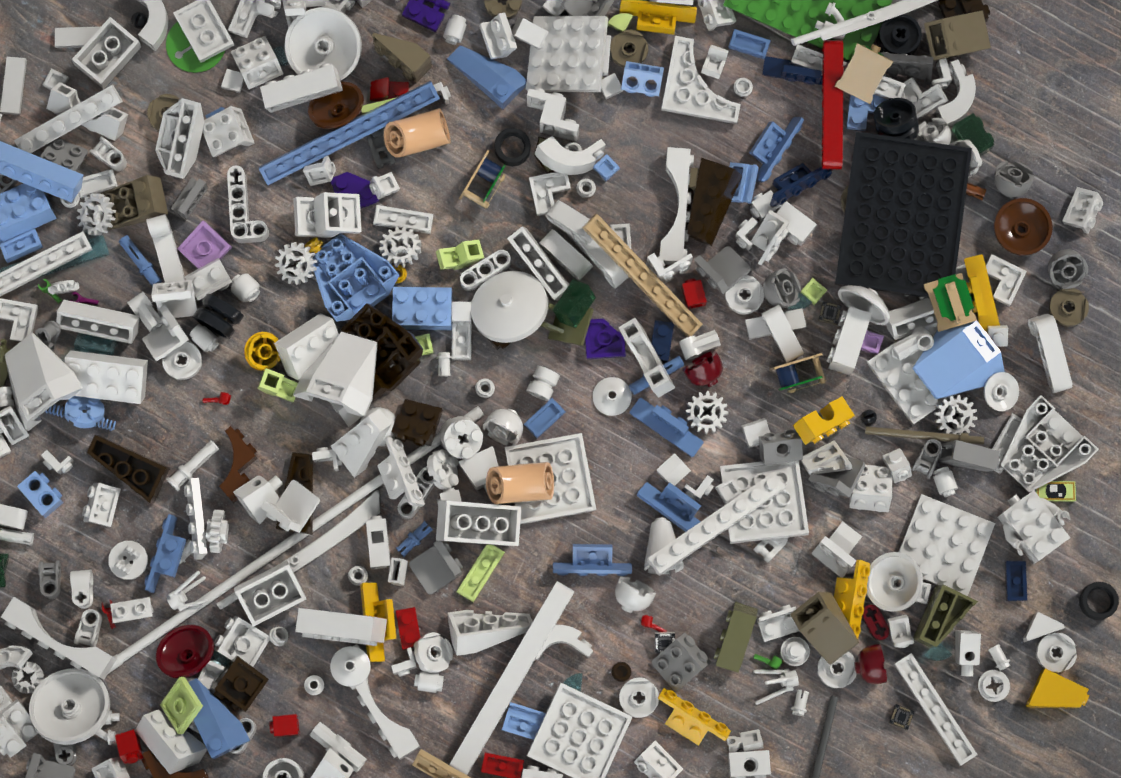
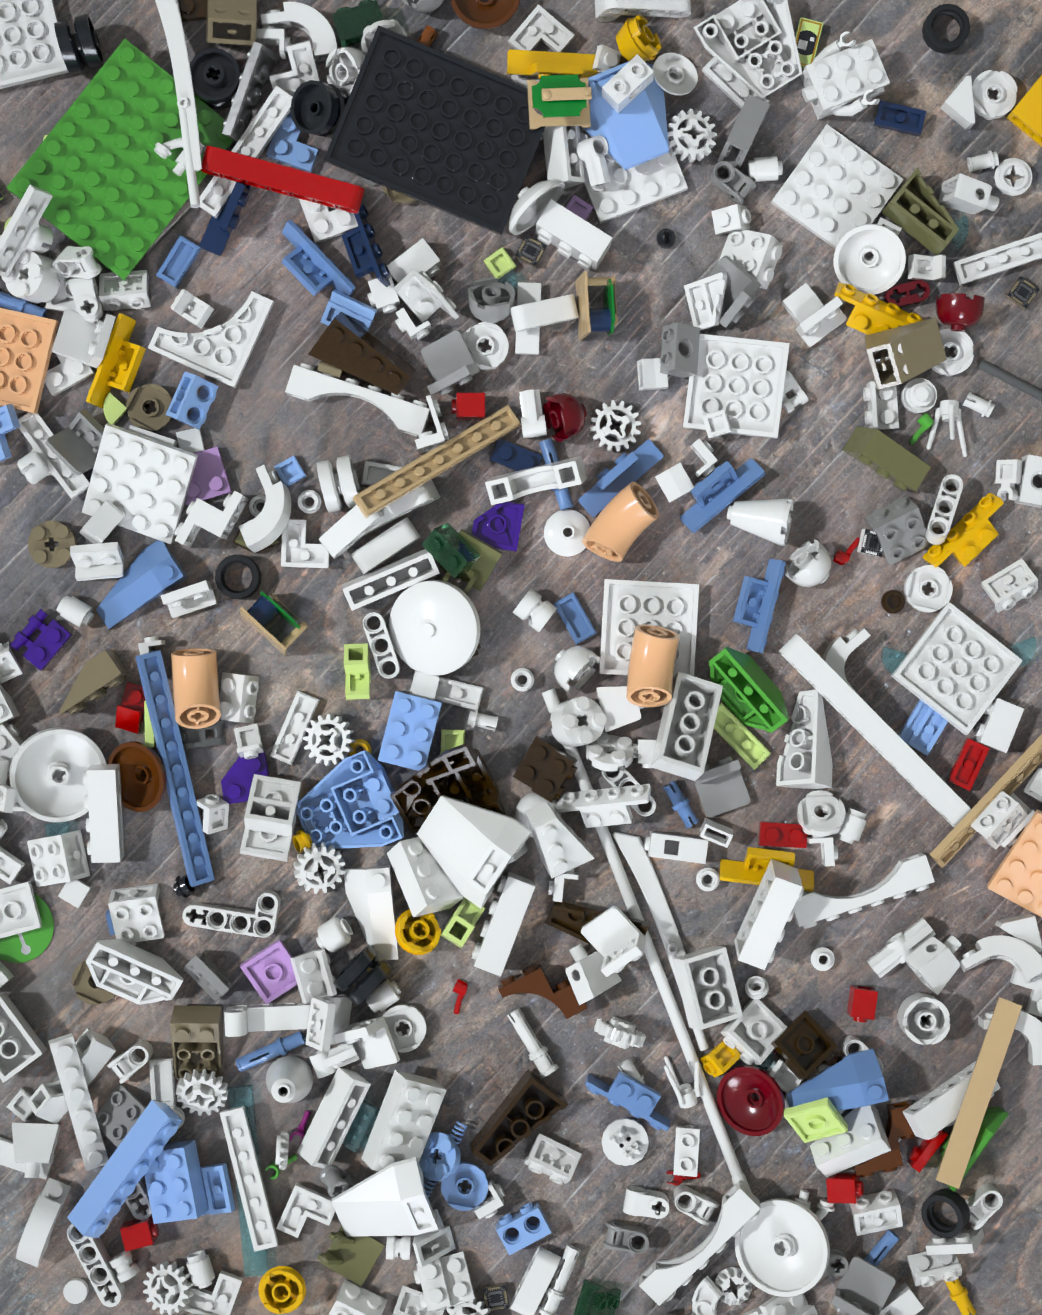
camera: 75 degrees left, 10 degrees up
(26, 96) = (34, 1145): none -> white torso
(57, 448) = (473, 1196): none -> light blue plate
(120, 281) = (289, 1079): none -> white cone
(196, 523) = (588, 1053): white plate -> none
(213, 620) = (719, 1059): none -> yellow bracket
(255, 162) = (182, 887): none -> black plate
(276, 314) = (373, 904): none -> white wedge
(284, 417) = (504, 923): none -> white brick
(357, 674) = (815, 901): white dish -> none
(416, 169) = (238, 697): none -> white bracket
(486, 113) = (189, 599): none -> white bracket
(520, 568) = (748, 690): none -> bright green wedge
(586, 105) = (209, 477): none -> lavender plate
(606, 203) = (338, 484): none -> white wheel
(630, 434) = (621, 523): none -> light nougat brick
(698, 696) = (947, 499): none -> white beam
(716, 523) = (755, 448): white plate -> none
(743, 87) = (230, 283): white plate -> none
(809, 148) = (327, 224): none -> white plate
(813, 427) = (657, 276): yellow arch -> none
(864, 72) = (254, 129): tan piece -> none
(965, 437) = (721, 133): dark tan bar -> none
(979, 350) = (627, 83): none -> white brick
(1019, 355) = (637, 39): none -> yellow cone

